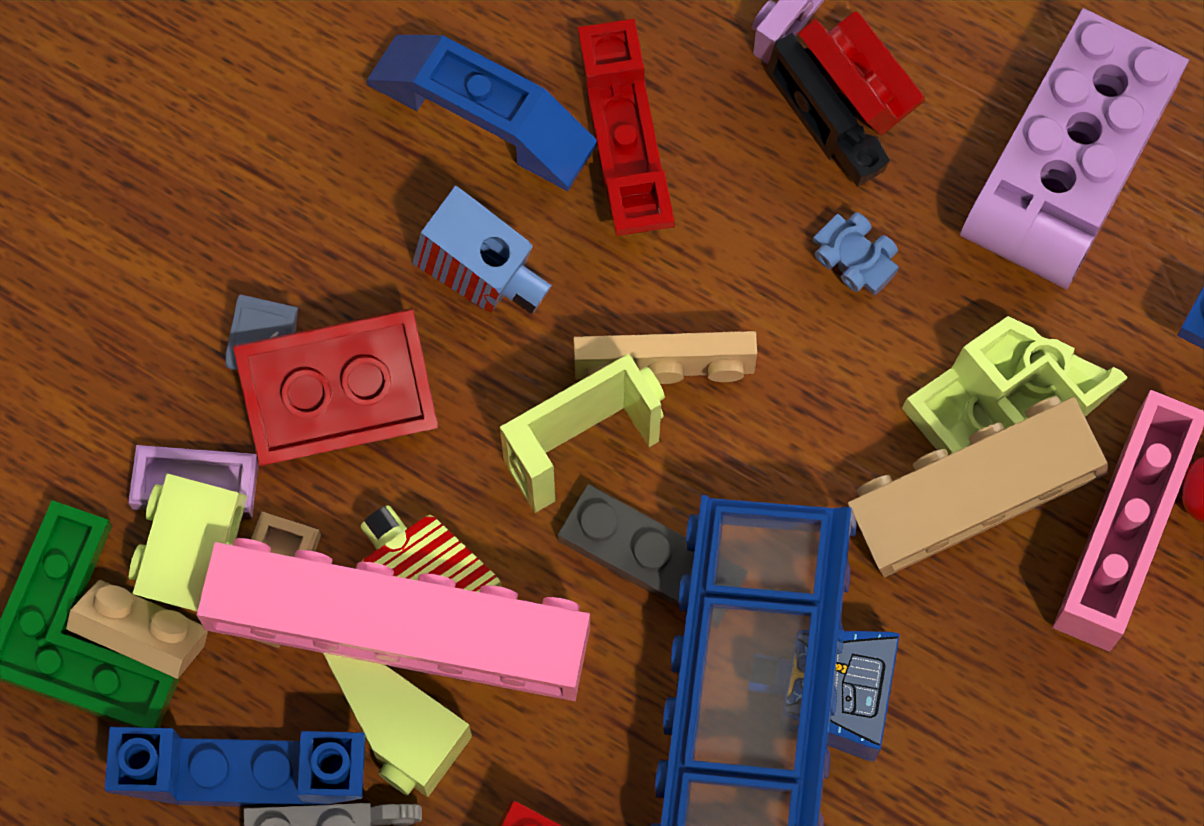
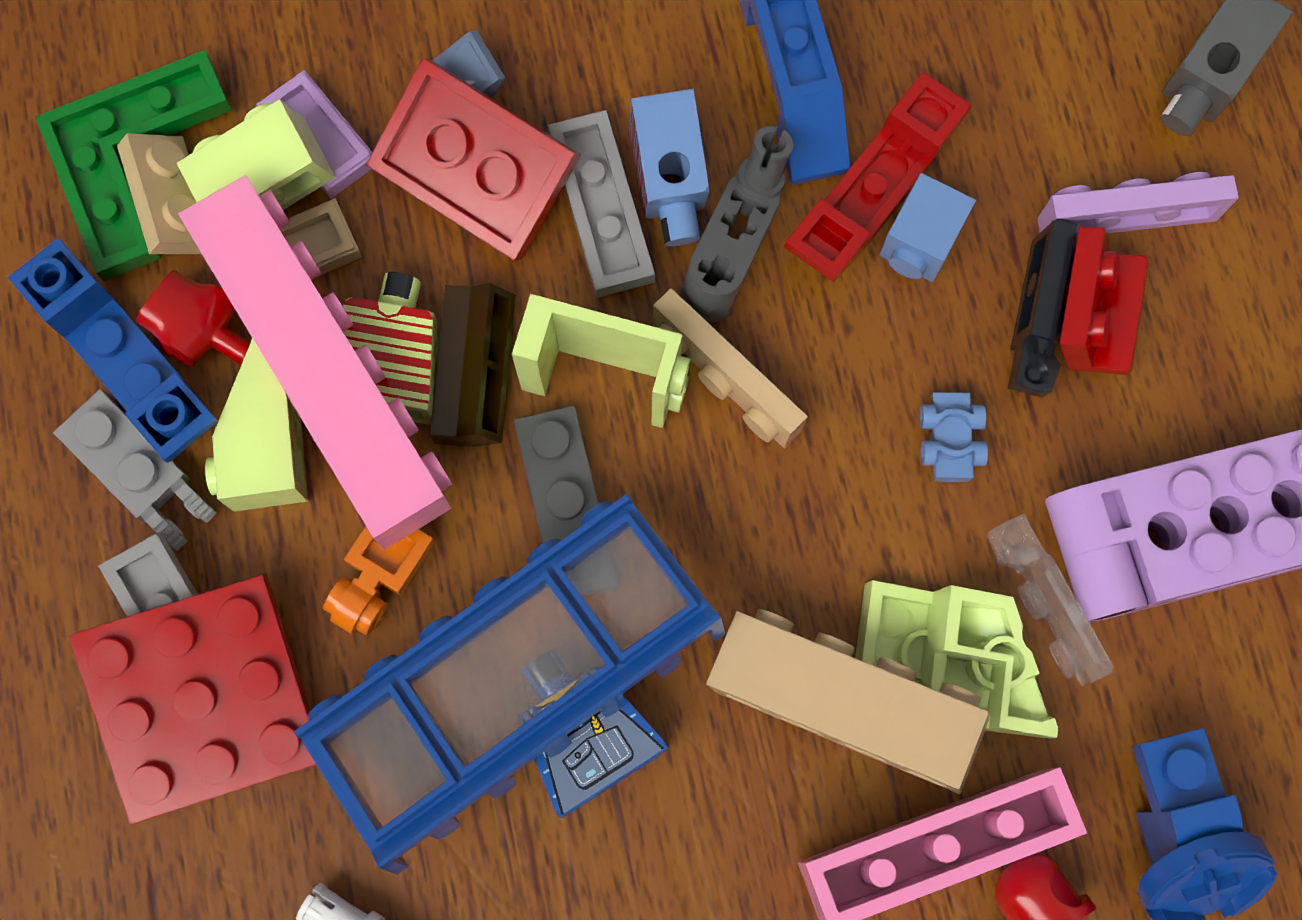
camera: 45 degrees right, 5 degrees up
(257, 695) = (191, 320): none -> red piece
(461, 330) = (604, 207): none -> light grey plate
(489, 524) = (472, 366): none -> dark brown piece
(583, 288) = (721, 261): none -> dark grey beam
(587, 764) = (357, 603): none -> orange plate
(693, 132) = (926, 228): none -> medium blue brick
(1030, 294) = (1049, 596): none -> clear hinge

